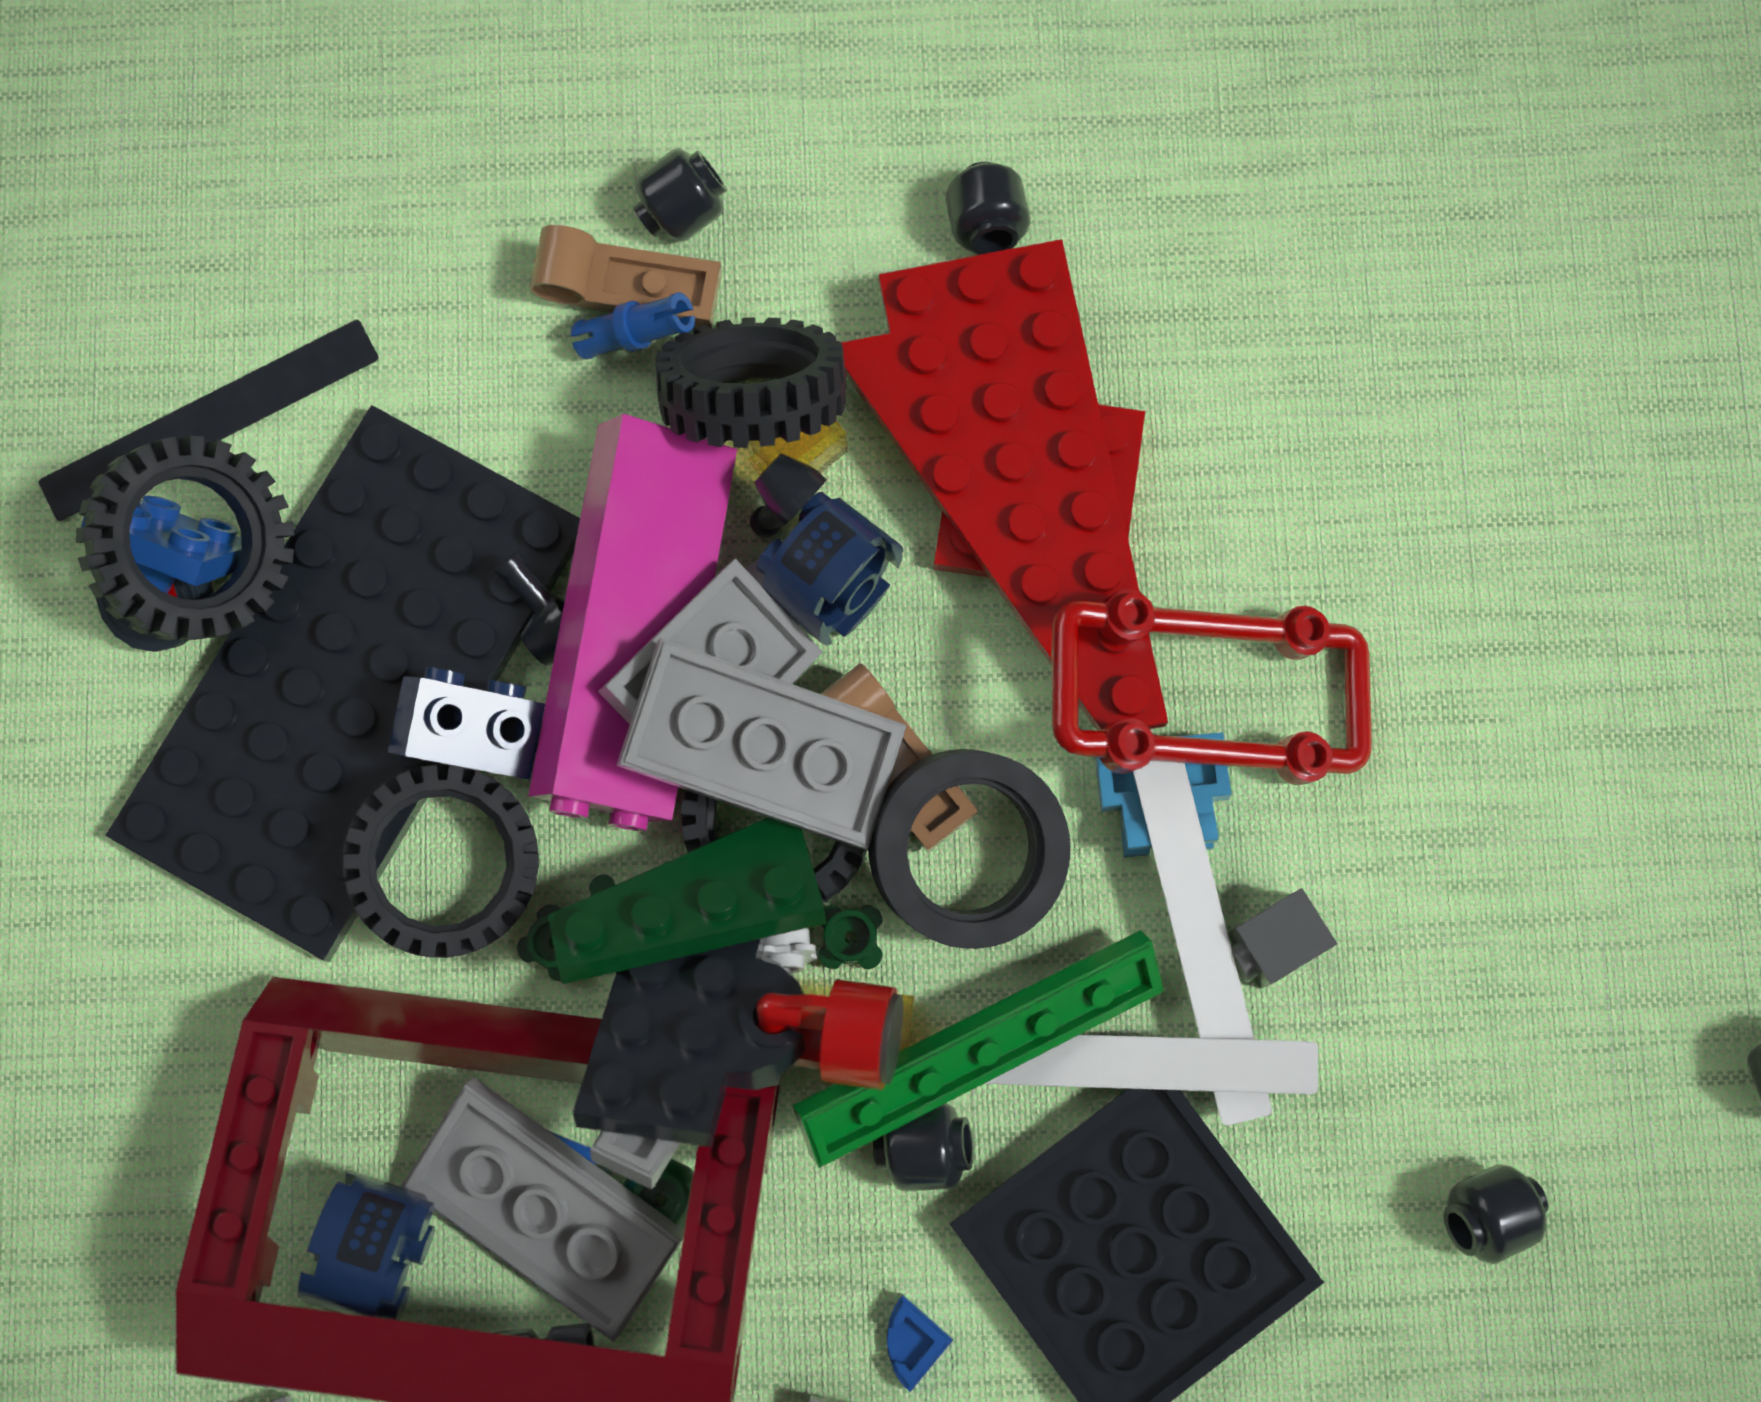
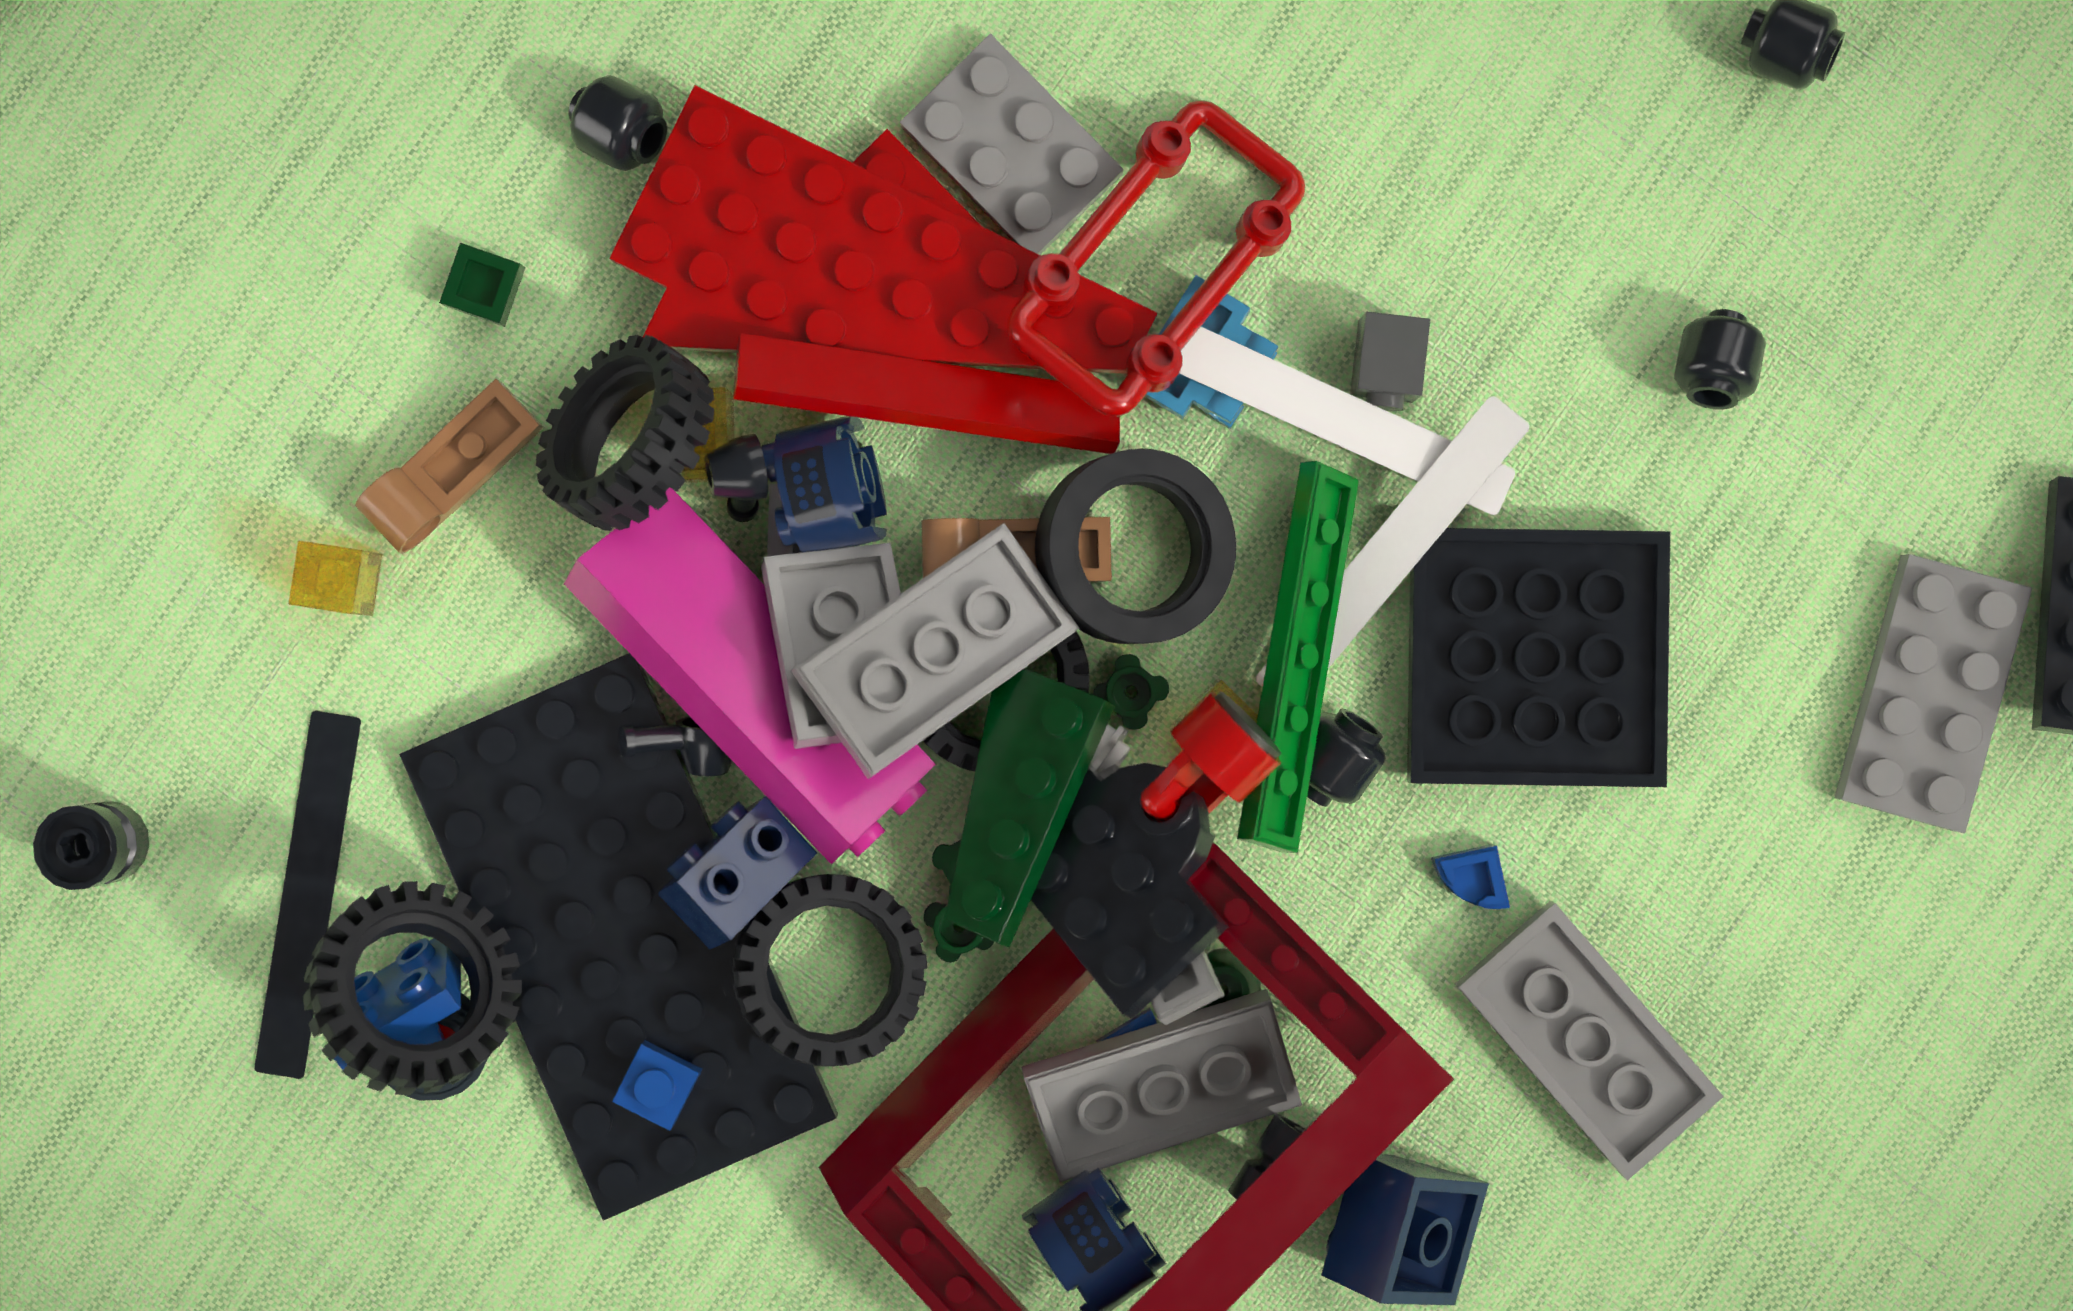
camera: 55 degrees left, 10 degrees up
(129, 227) = (90, 845): none -> black wheel
(246, 793) = (657, 1085): none -> blue plate
(473, 256) = (335, 578): none -> clear yellow brick
(633, 326) = (498, 492): blue pin -> none
(679, 195) = (410, 368): black head -> none
(785, 202) = (482, 284): none -> dark green plate
(958, 585) = (919, 394): none -> red tile
(1208, 517) = (1011, 147): none -> light grey plate

